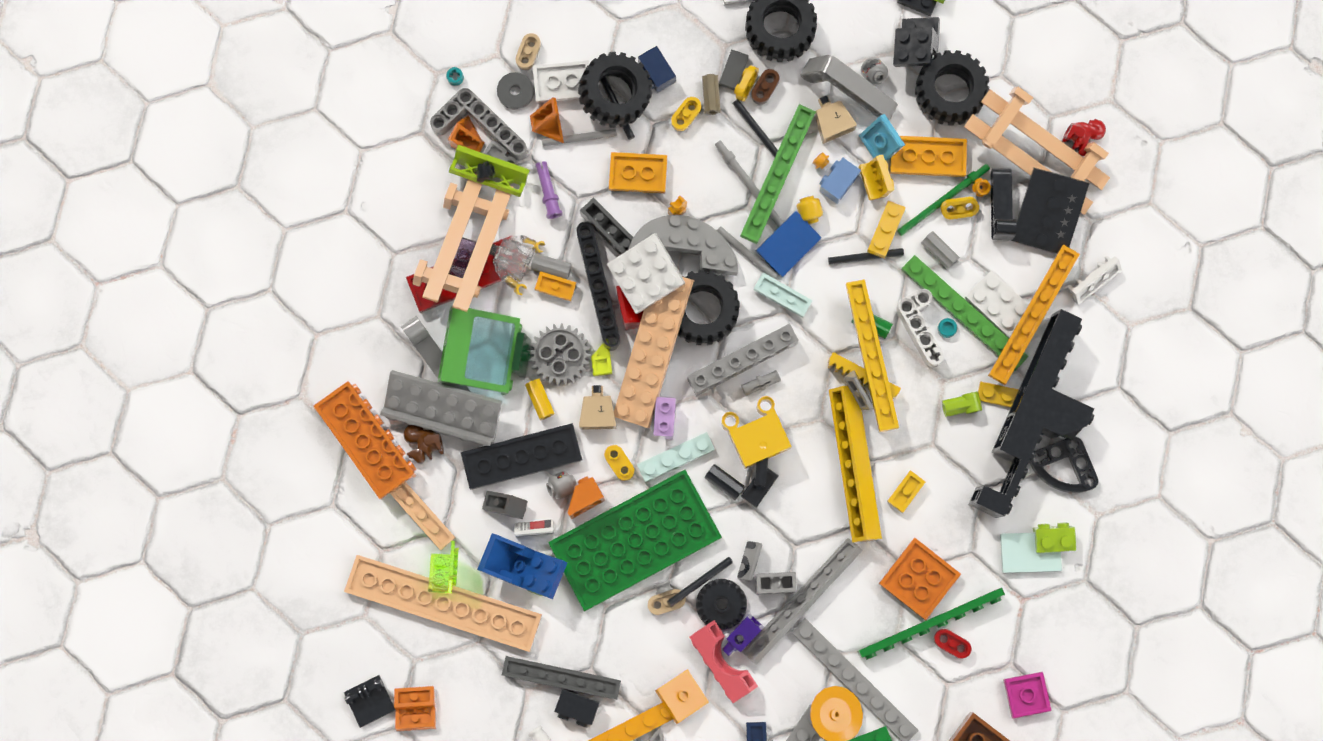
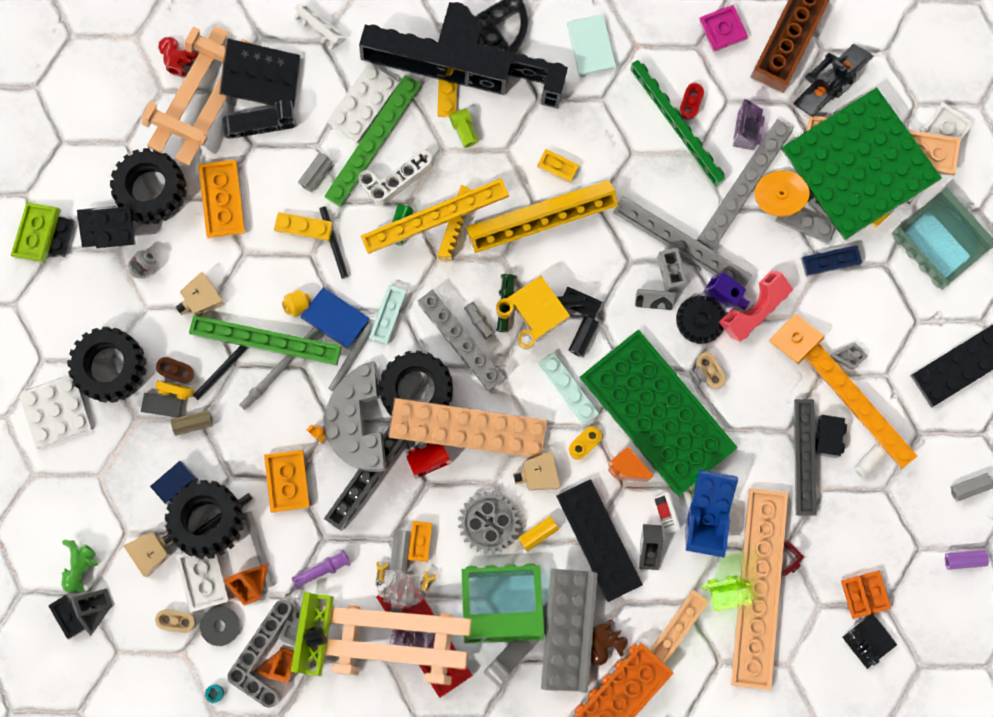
camera: 105 degrees left, 0 degrees up
(457, 642) = (794, 565): none -> dark red bracket
(521, 354) = (498, 558): dark green plate -> none
(561, 485) = (620, 494): light grey head -> none
(594, 277) = (402, 497): black beam -> none
(595, 36) = (149, 552): none -> tan torso
(601, 361) = (486, 480): neon yellow tile -> none
(646, 273) = (397, 446): white plate -> none
(664, 417) = (533, 404): lavender bracket -> none
(683, 113) = (217, 444): yellow plate -> none
(699, 582) = (685, 342): black bar -> none
(783, 414) = (506, 291): none -> dark green pin
(821, 161) = (243, 301): light orange plate -> none
(839, 180) = (261, 279): medium blue brick -> none
(849, 82) = (159, 285): light grey beam -> none
(858, 391) = (472, 223): light grey slope -> none
(876, 178) = (253, 243): yellow bracket -> none
(881, 138) = (214, 244): medium azure tile -> none
(914, 696) = (748, 126): none -> clear purple slope
(919, 578) = (637, 140): orange plate -> none
(947, 328) = (391, 154): teal tile -> none
(959, 208) = (270, 161): yellow plate -> none
(971, 177) = (237, 154): green bar -> none
(985, 187) = (245, 139): light orange plate -> none
(1033, 315) = (365, 73): light orange plate -> none
(1055, 538) = (574, 24): lime bracket -> none

